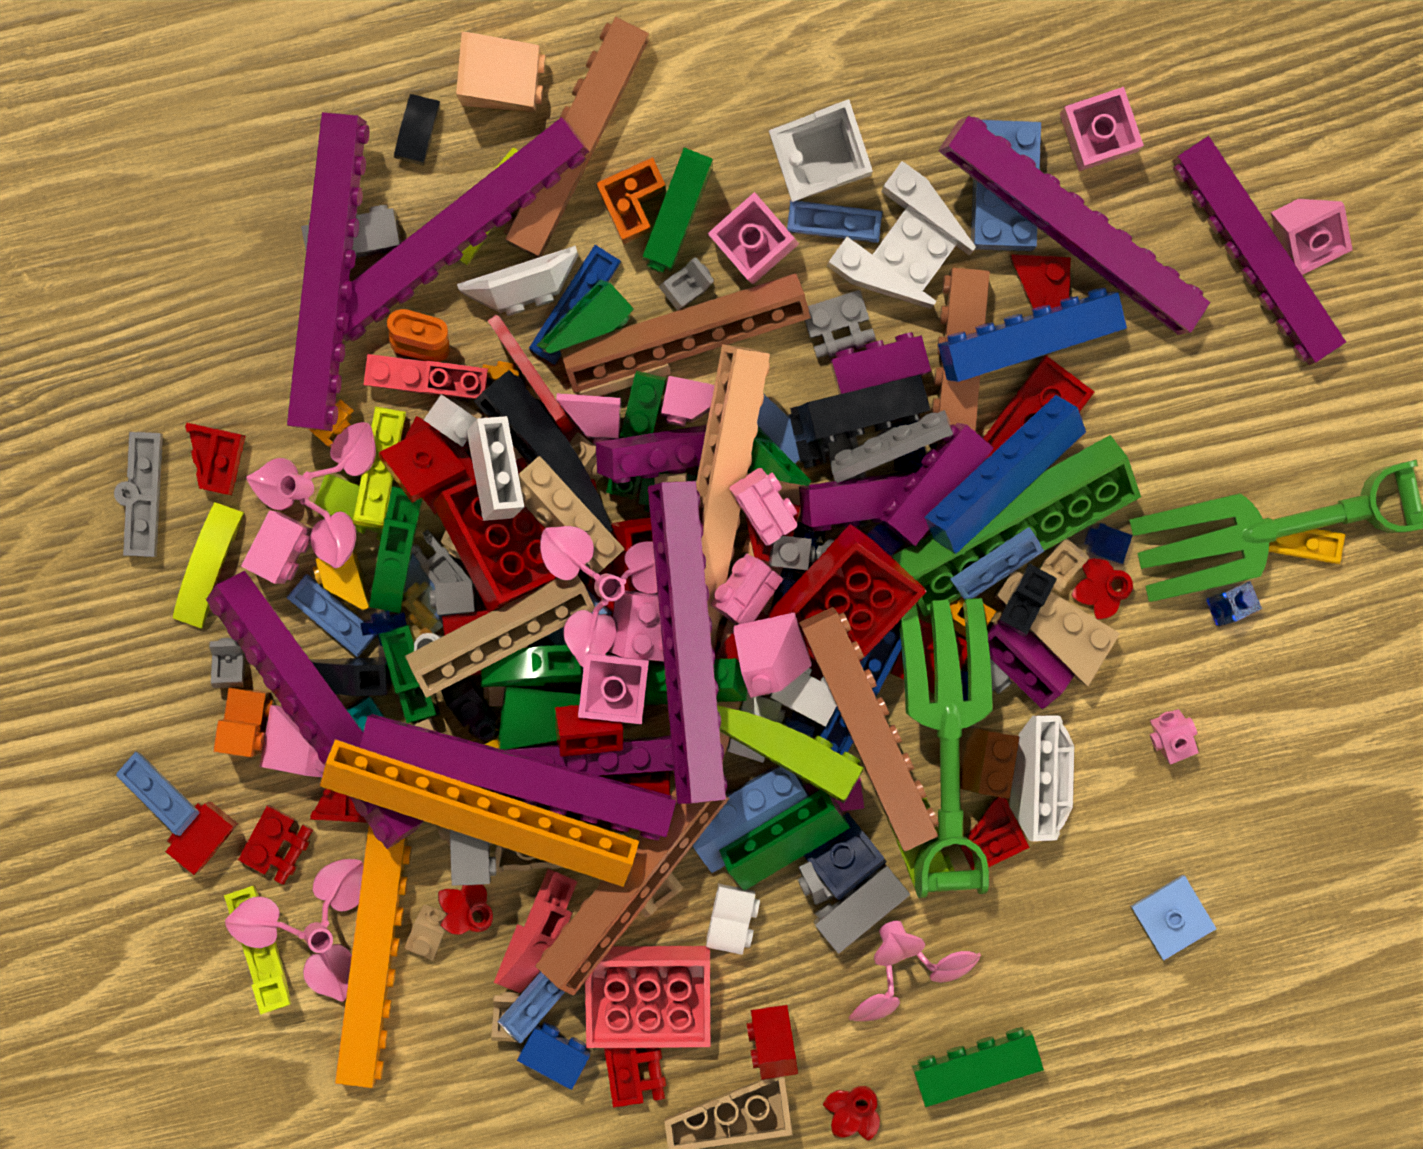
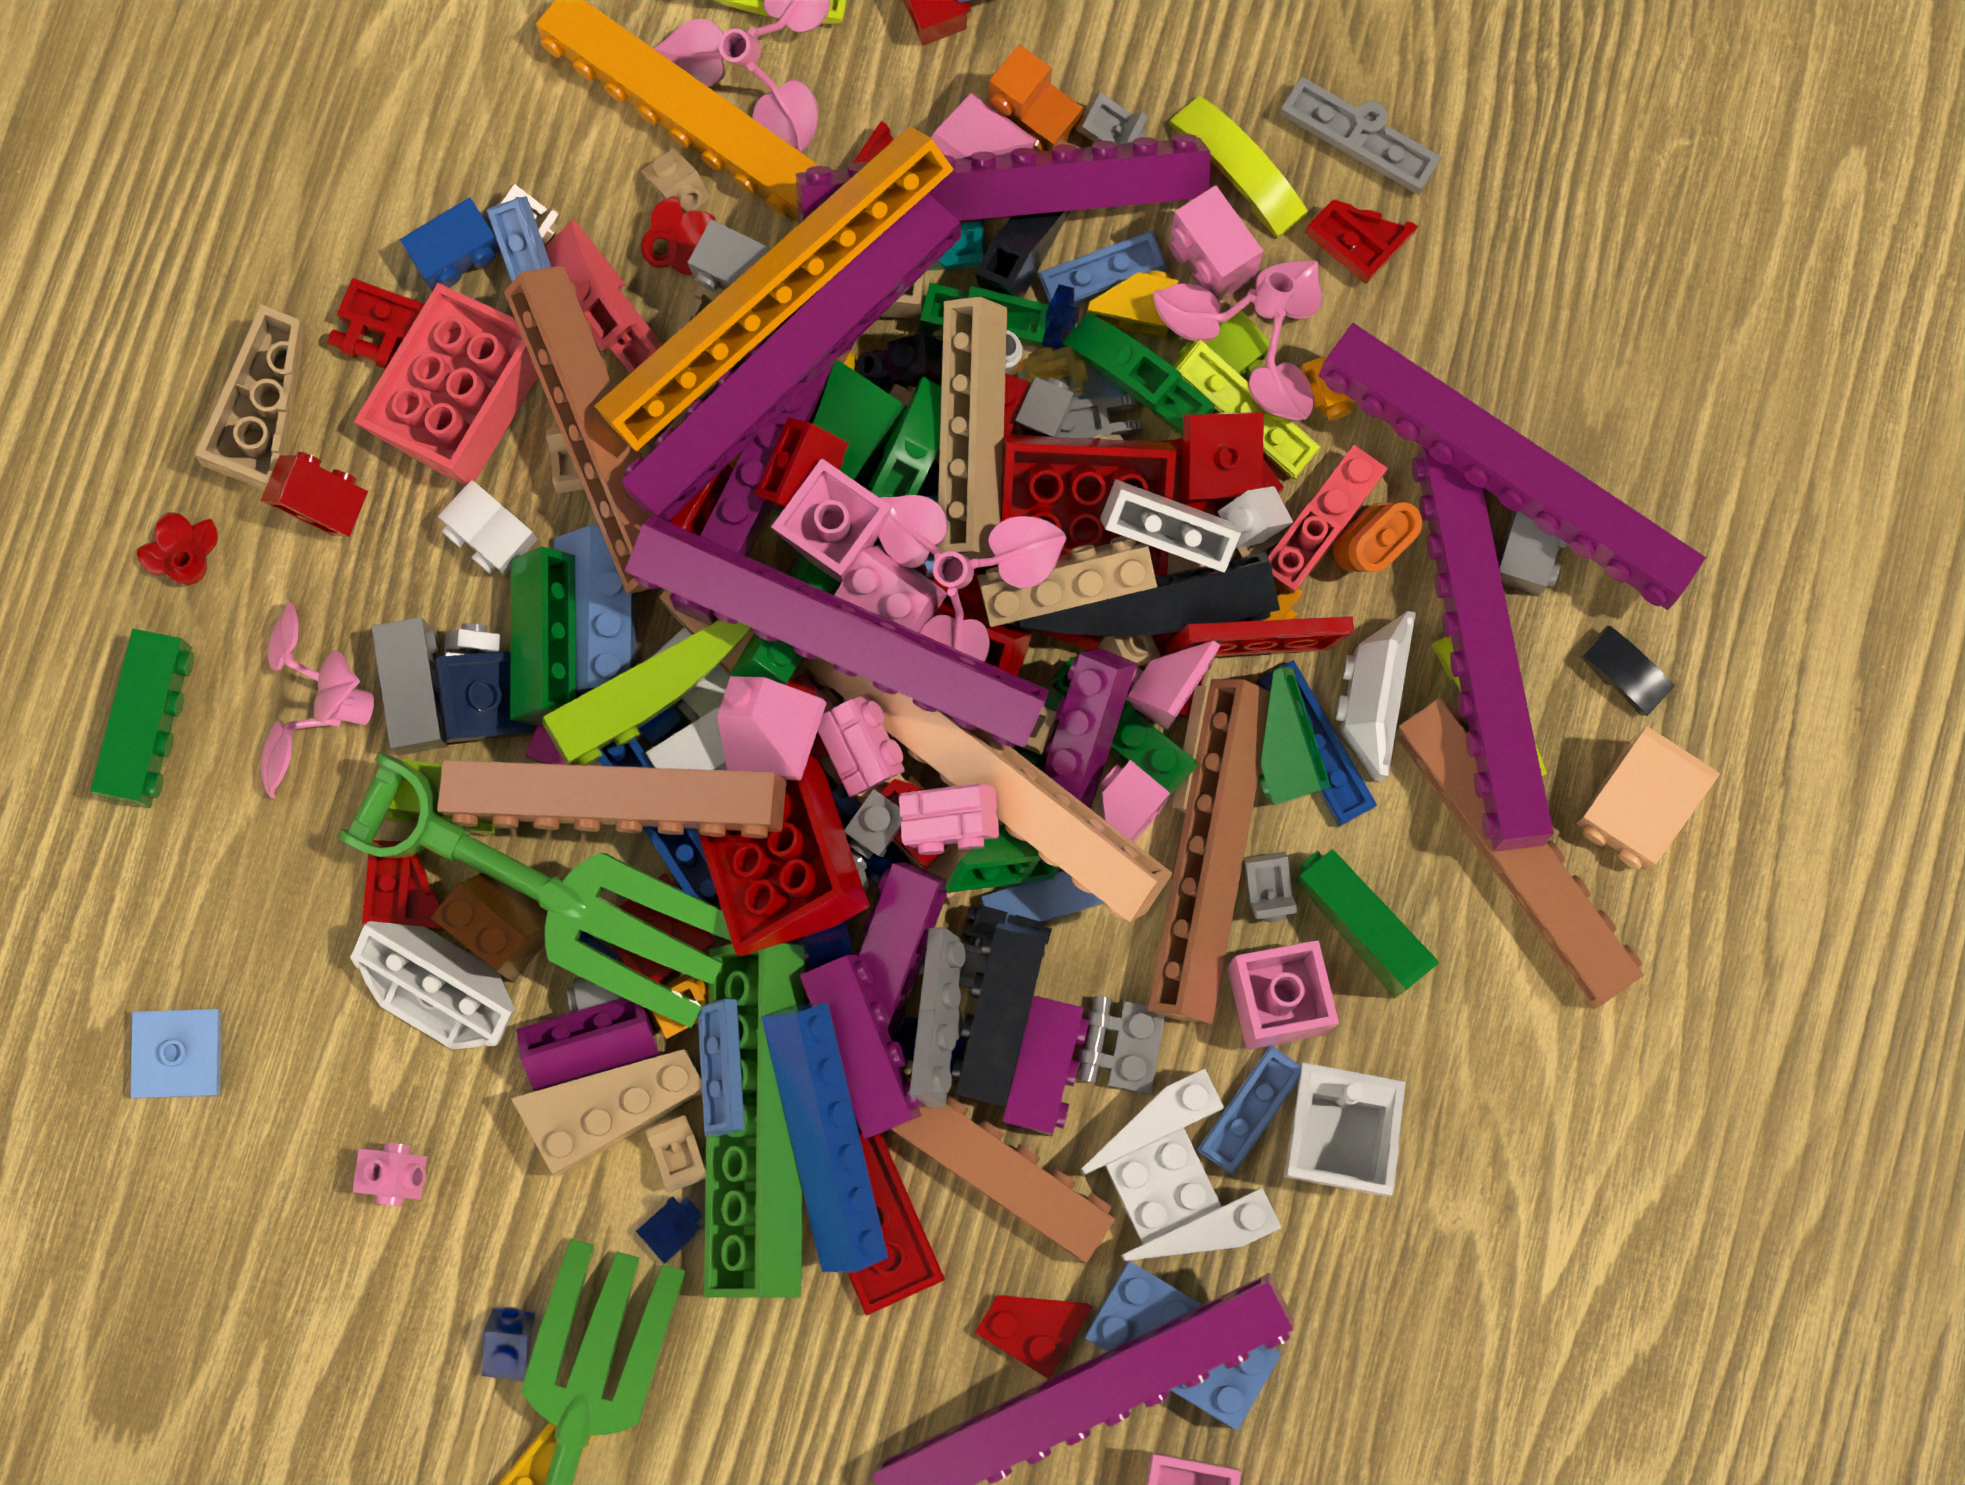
camera: 115 degrees right, 10 degrees down
(267, 840) = (885, 65): red plate -> none
(623, 196) = (1418, 867): orange brick -> none
(1027, 600) = (657, 1078): black slope -> none
(1031, 335) = (977, 1271): blue brick -> none
(1098, 589) = (621, 1183): red plate -> none

